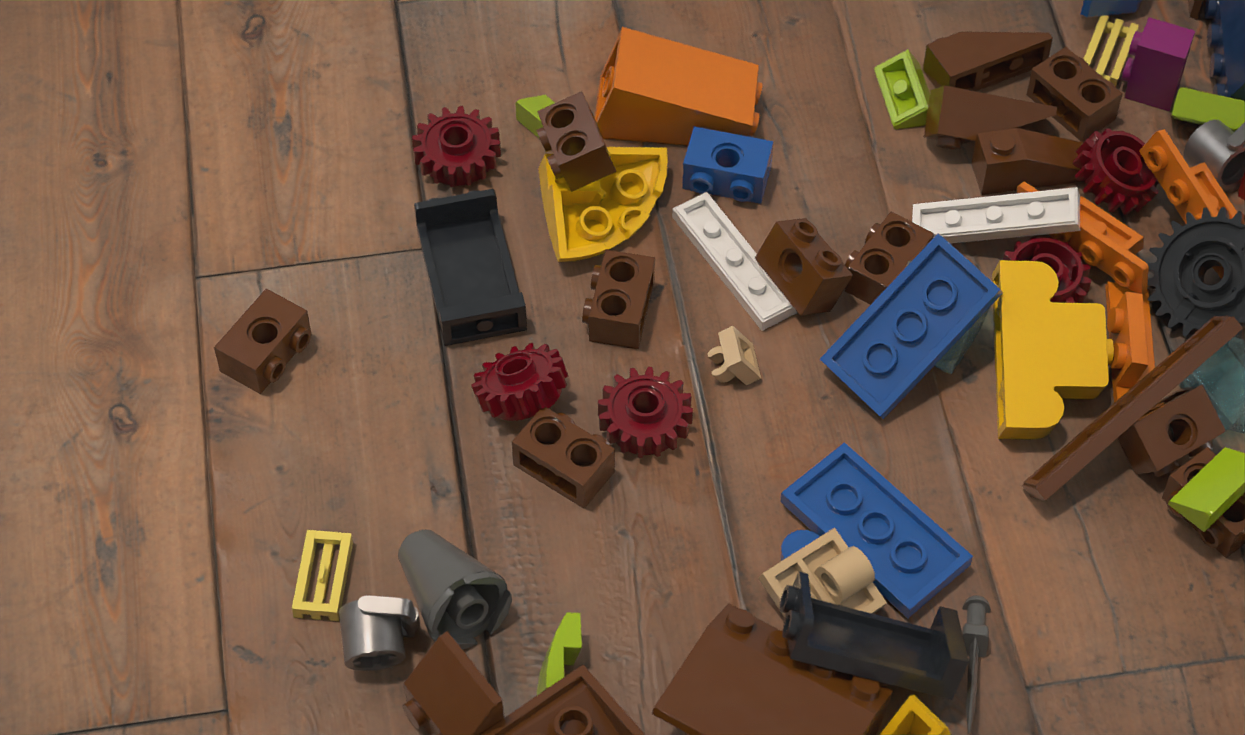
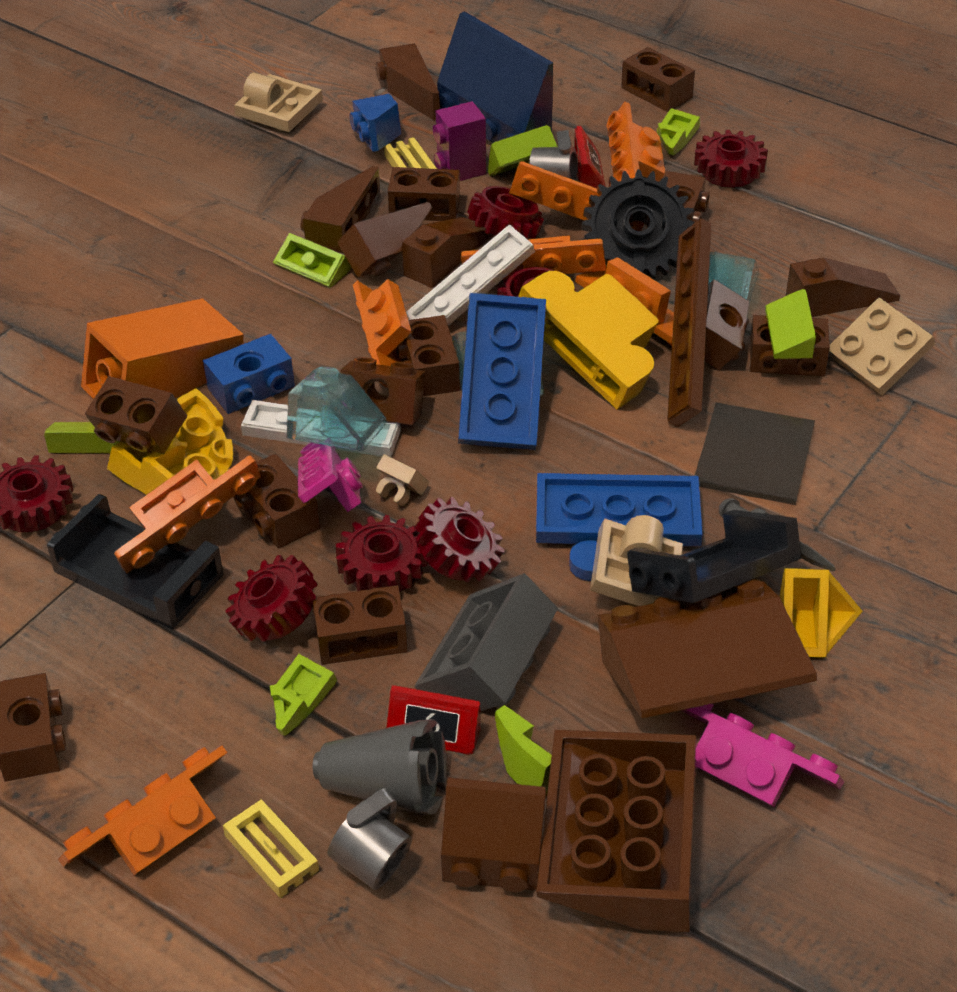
camera: 45 degrees left, 10 degrees down
(270, 489) = (154, 823): none -> orange bracket
(467, 474) = (299, 692): none -> lime slope
(529, 580) = (456, 716): none -> slope
(534, 245) = (181, 504): none -> orange bracket
(636, 557) = (490, 643): none -> dark grey slope
(671, 312) = (322, 468): none -> dark pink bracket
(727, 442) = (458, 540): none -> dark red gear
(732, 256) = (332, 411): none -> clear light blue slope
(877, 201) = (382, 320): none -> orange bracket
(1064, 576) = (755, 453): none -> clear smoke piece

